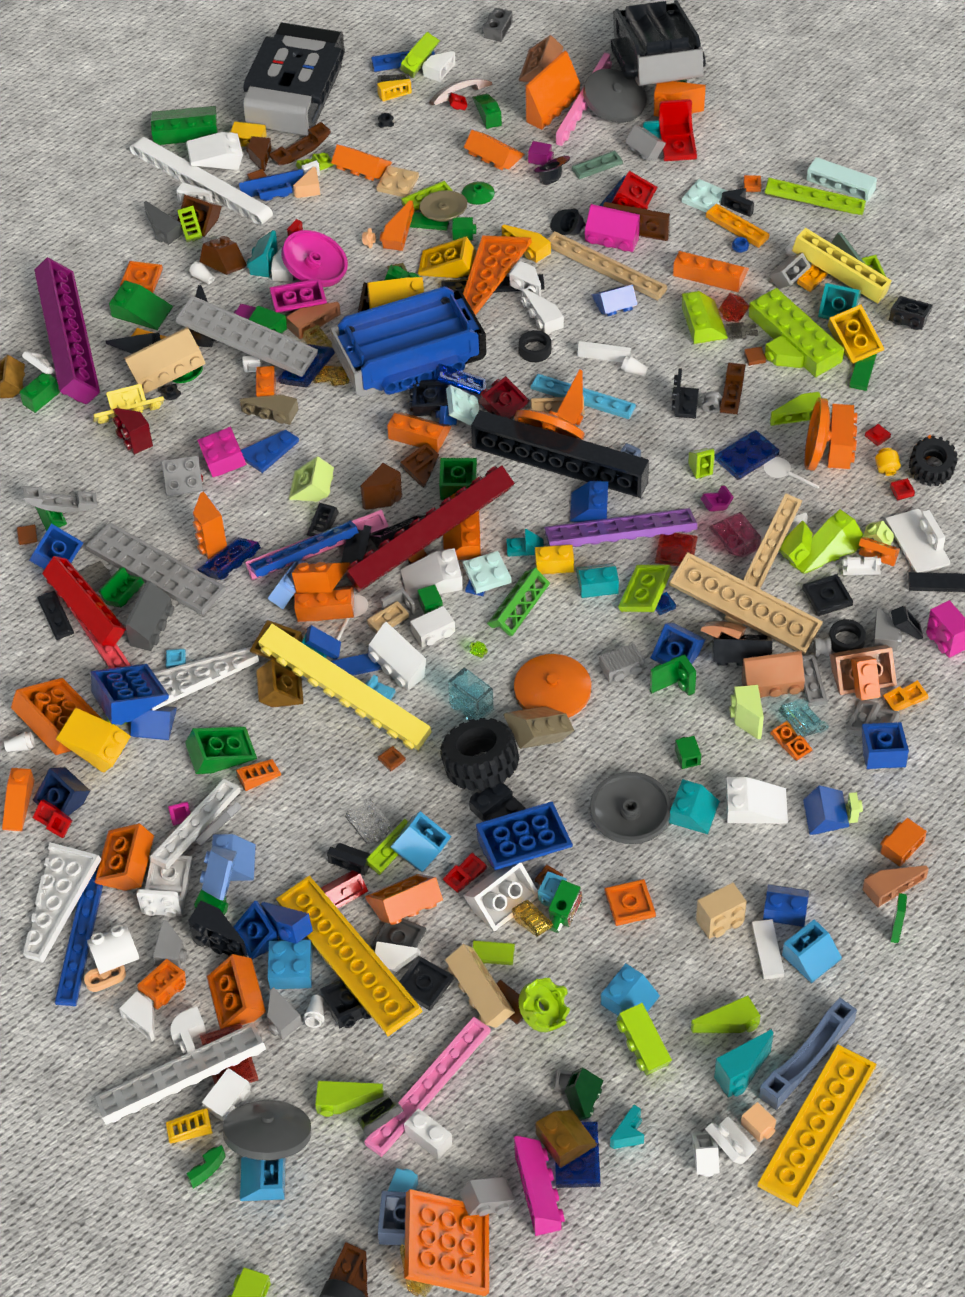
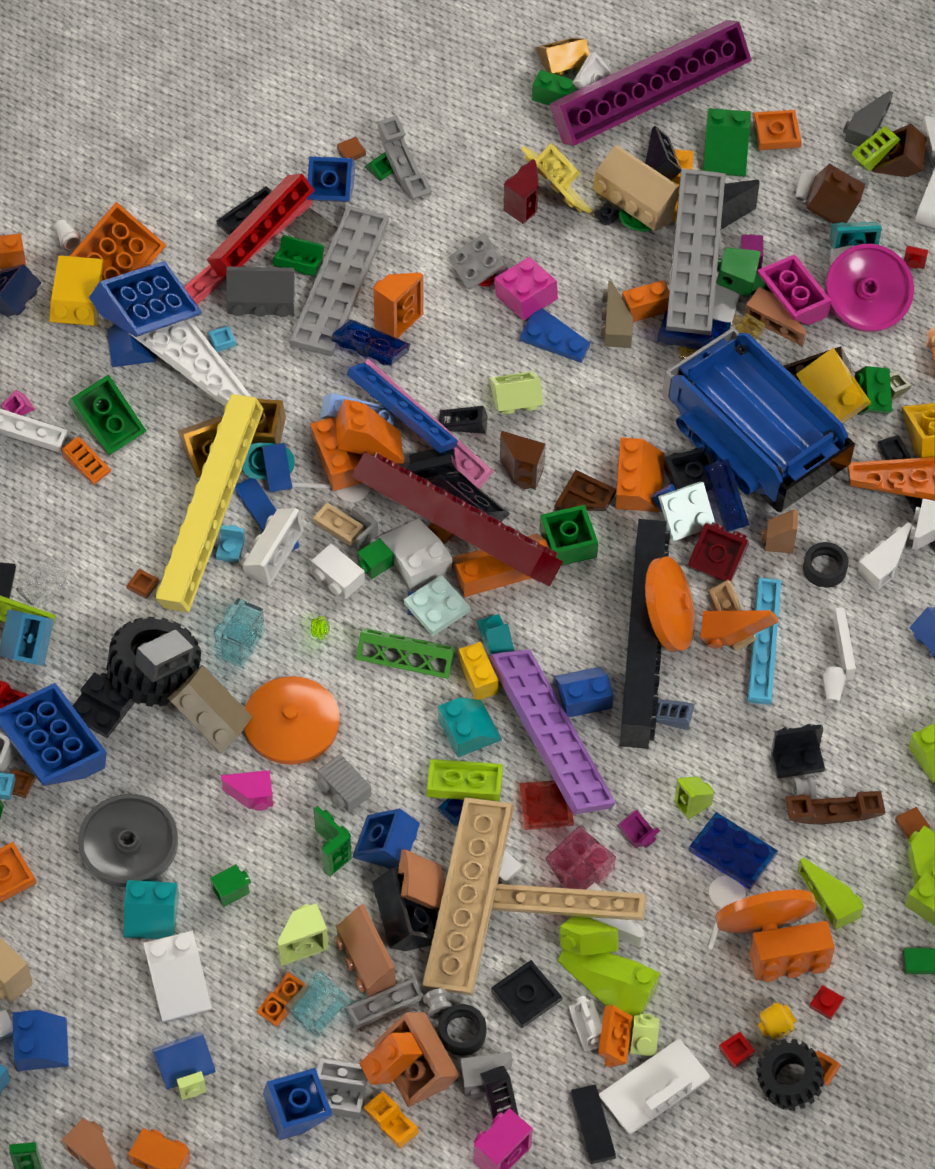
camera: 70 degrees right, 5 degrees up
(493, 731) = (164, 655): none -> brick
(503, 357) = (781, 533): none -> medium nougat slope
(609, 721) = (250, 789): none -> dark pink slope

